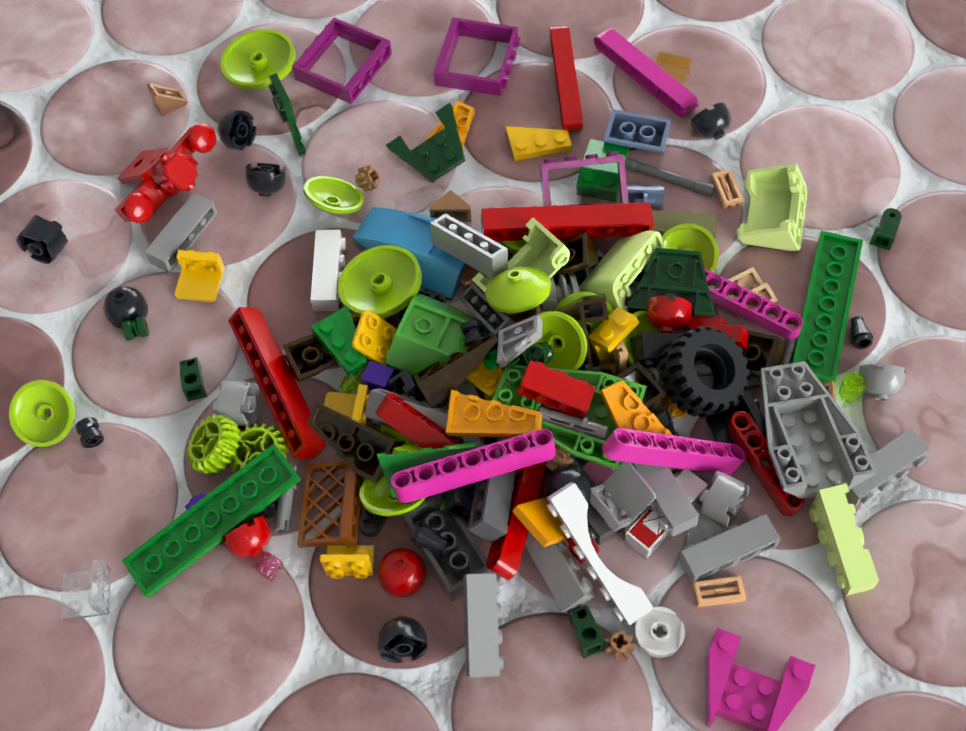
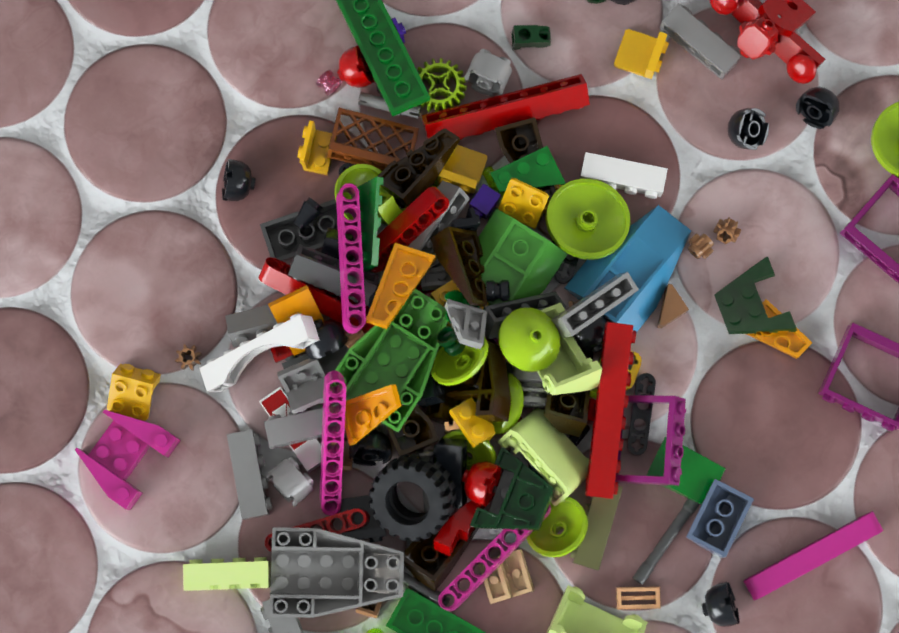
camera: 100 degrees right, 20 degrees up
(166, 98) = (881, 41): medium nougat slope -> none
(213, 444) = (450, 47): lime gear -> none
(283, 105) = (822, 154): dark green wing -> none
(333, 195) = (719, 194): lime dish -> none
(386, 195) = (700, 246): none -> medium nougat gear
(401, 572) = (295, 189): red cylinder -> none
(481, 625) = (227, 244): light grey brick -> none
(536, 142) = (742, 415): yellow wing -> none
(556, 389) = (408, 346): red brick -> none
(566, 78) = (823, 466): red beam -> none
(577, 424) = (374, 366): light grey pin -> none
(586, 631) = (208, 333): dark green leg -> none
(646, 194) = (641, 506): sand blue hips -> none
(663, 646) = (180, 398): white plate -> none
(674, 65) = (818, 590): clear yellow piece -> none
(675, 699) = (132, 391): none -> yellow bracket
(719, 600) = (206, 473): light nougat tile -> none

